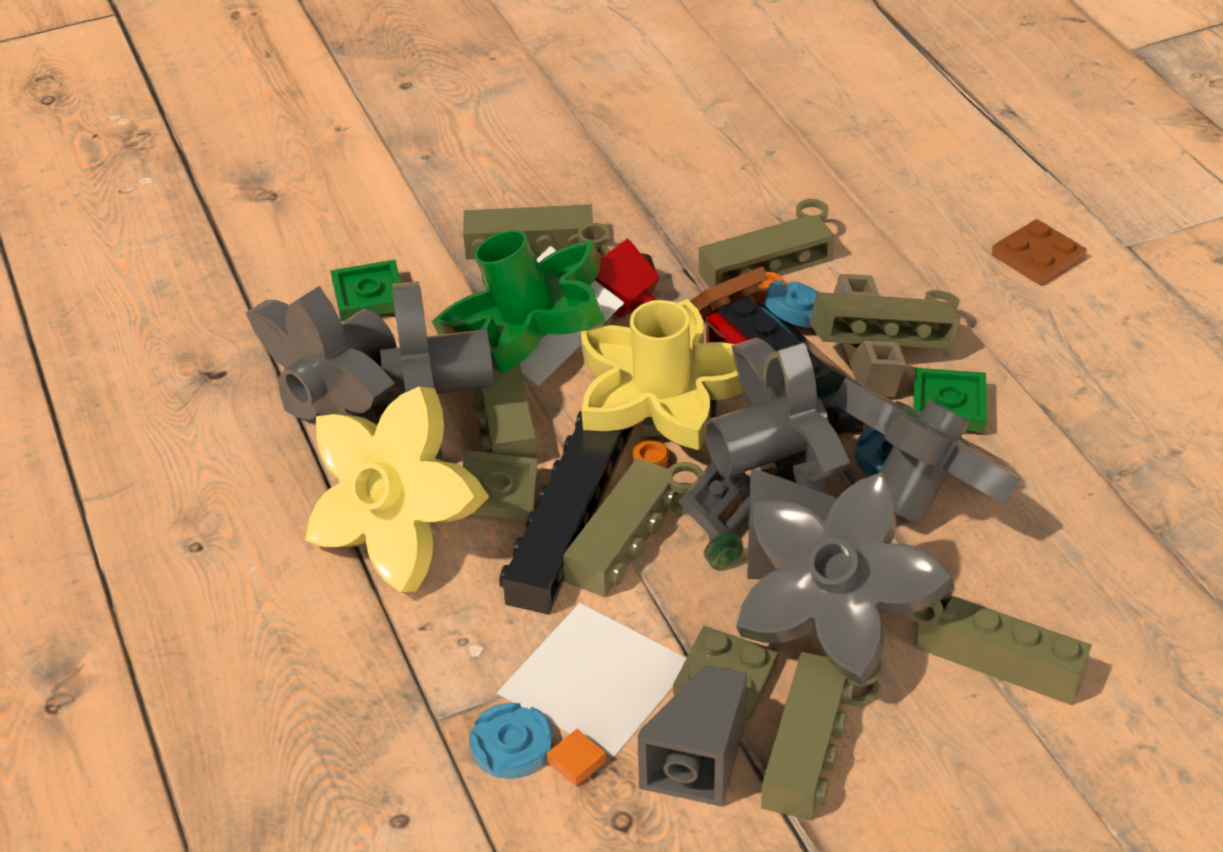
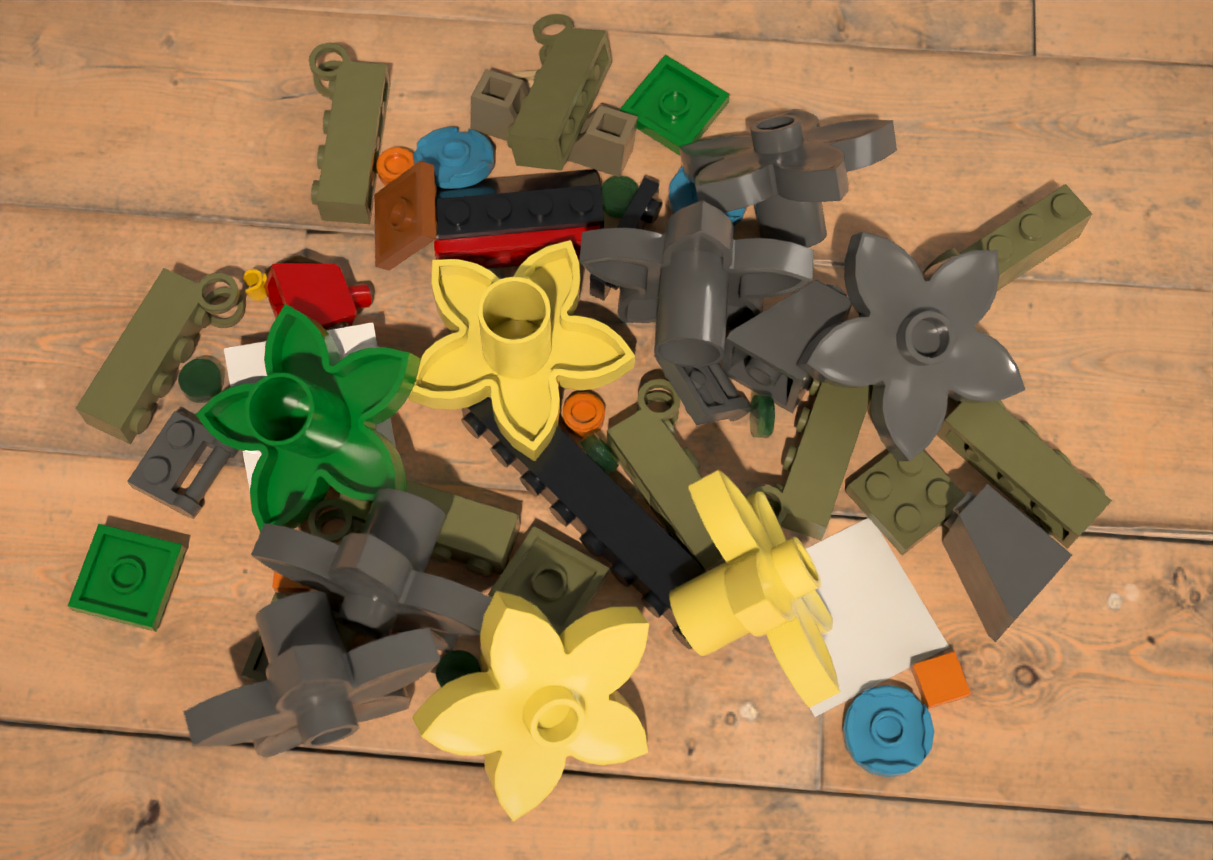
camera: 65 degrees left, 25 degrees up
(455, 281) = (172, 459): none -> dark grey plate
(552, 555) = (758, 590): none -> light yellow plant
(617, 467) = (600, 452): none -> clear green tile
(688, 600) = (820, 460): none -> olive hinge

